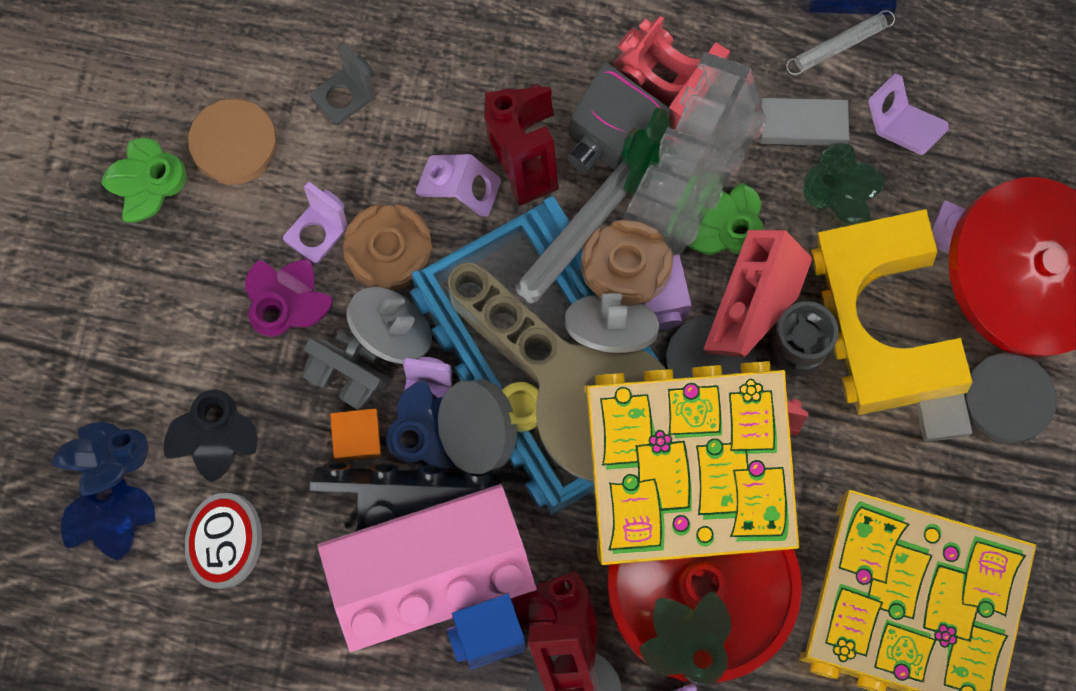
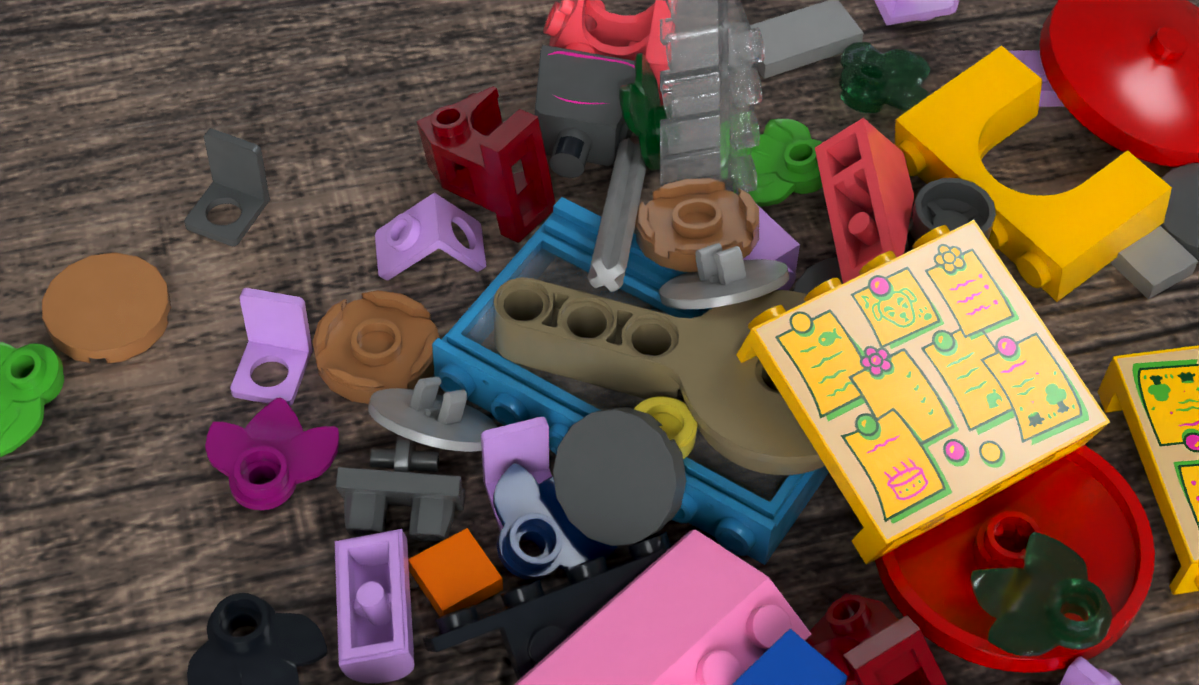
camera: 25 degrees left, 20 degrees down
(293, 436) = (374, 607): none -> lavender brick

